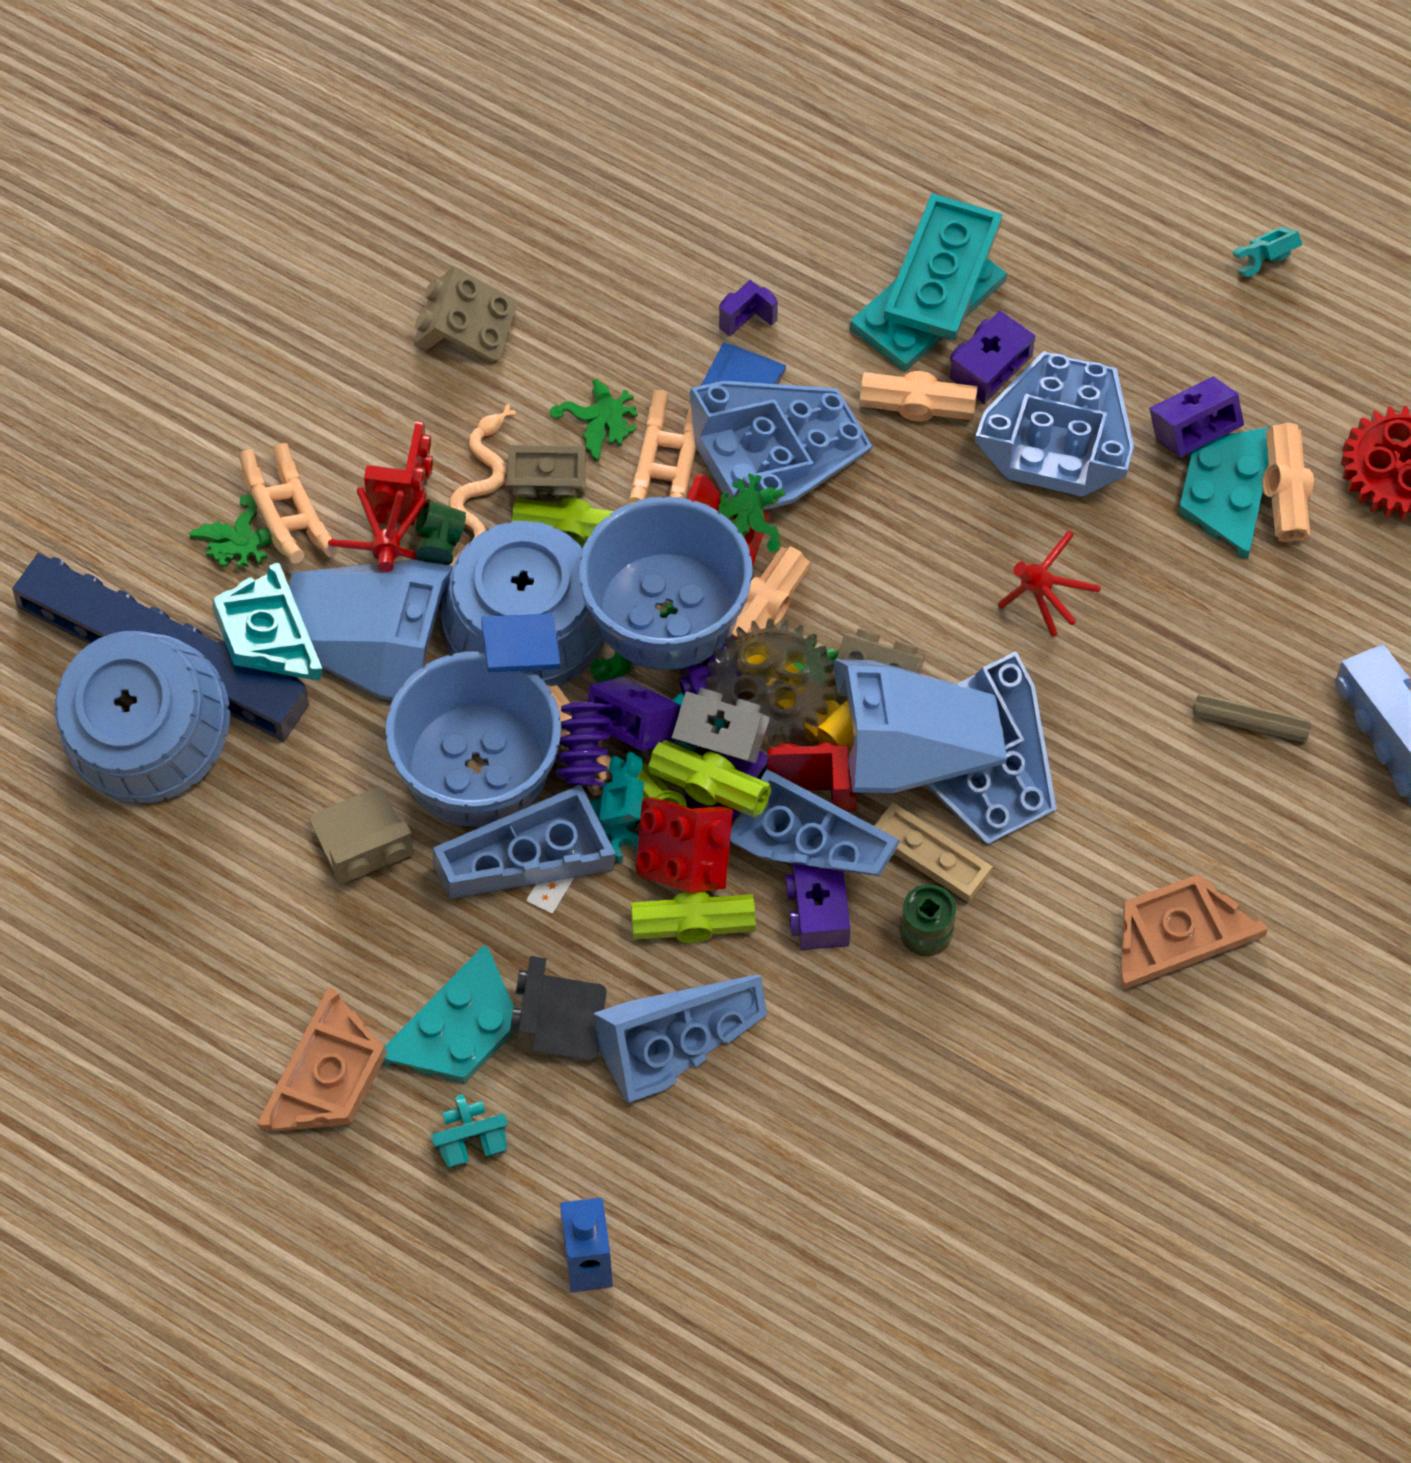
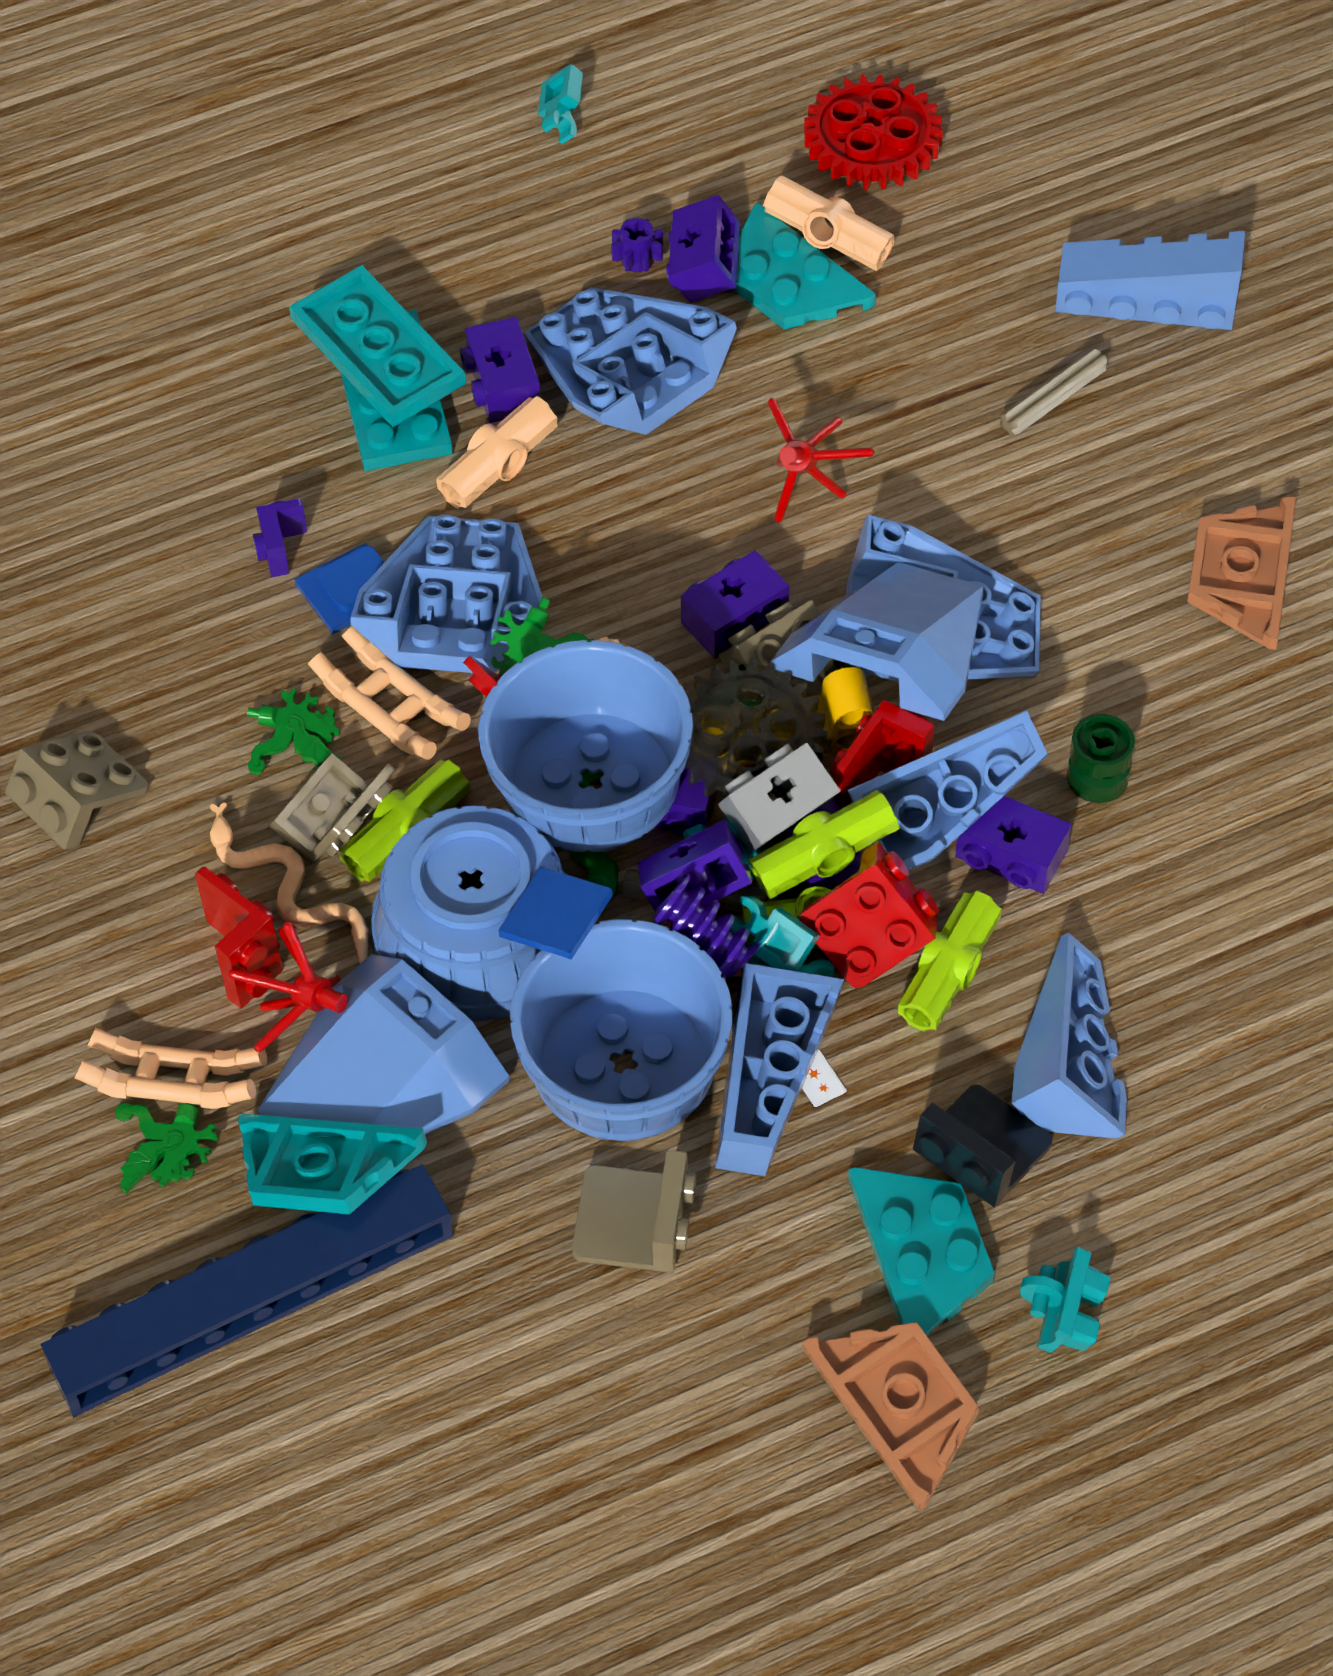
camera: 55 degrees left, 5 degrees down
(165, 736) = (341, 1398): medium blue piece -> none
(441, 529) = (328, 941): dark green piece -> none
(584, 1240) = (1271, 1255): blue torso -> none
(877, 612) = (732, 601): none -> dark purple brick
(934, 853) = (1051, 708): tan plate -> none
(1171, 373) = (637, 245): none -> dark purple gear

